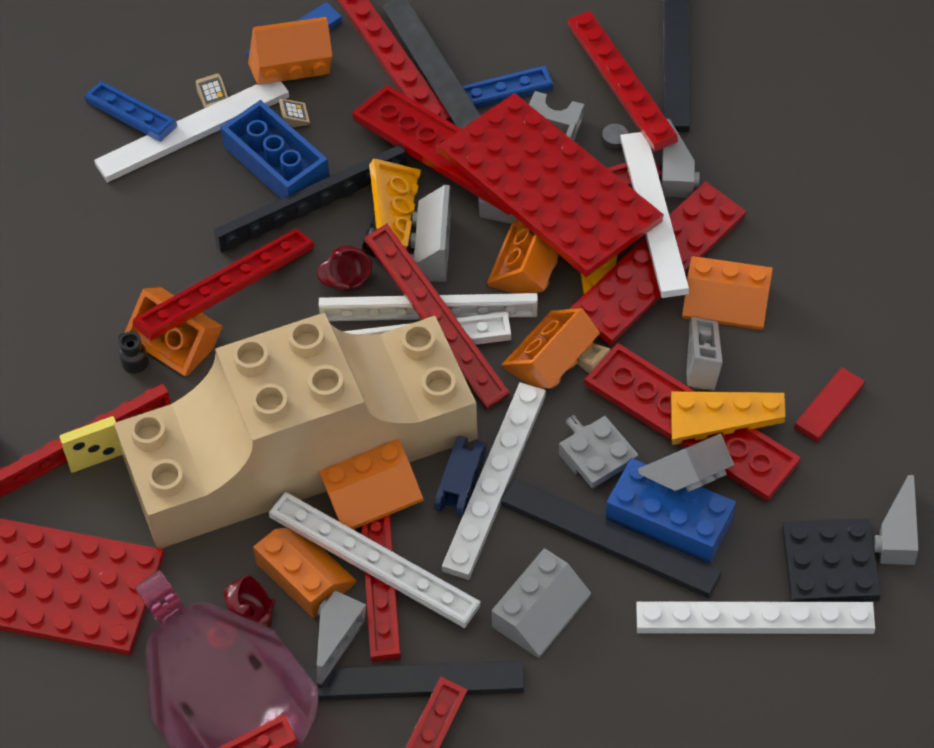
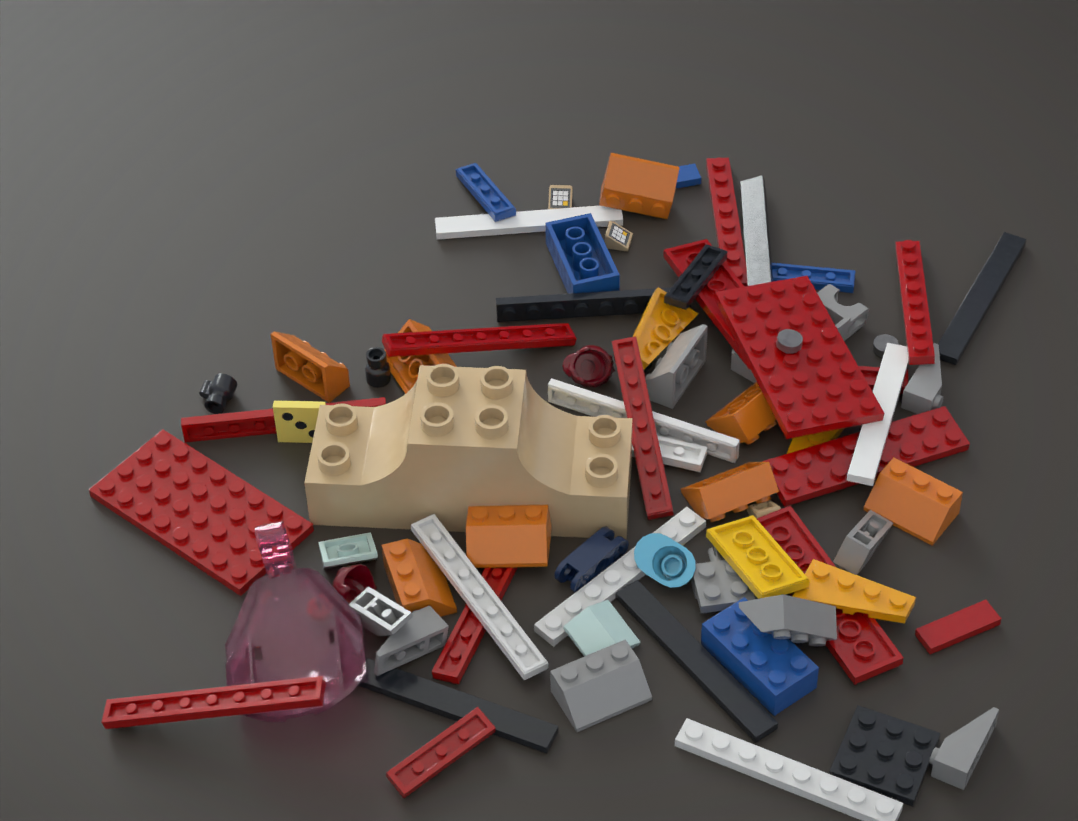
camera: 25 degrees right, 10 degrees down
(61, 378) = (309, 366): none -> orange slope
(215, 564) = (347, 550): none -> light aqua slope
(296, 620) = (379, 613): none -> light grey slope
(403, 133) = (695, 277): none -> black tile
(509, 548) = (599, 628): none -> light aqua slope
(534, 449) = (664, 560): none -> medium azure piece
(540, 173) = (789, 341): none -> flat silver tile
(621, 412) = (757, 558): none -> yellow tile

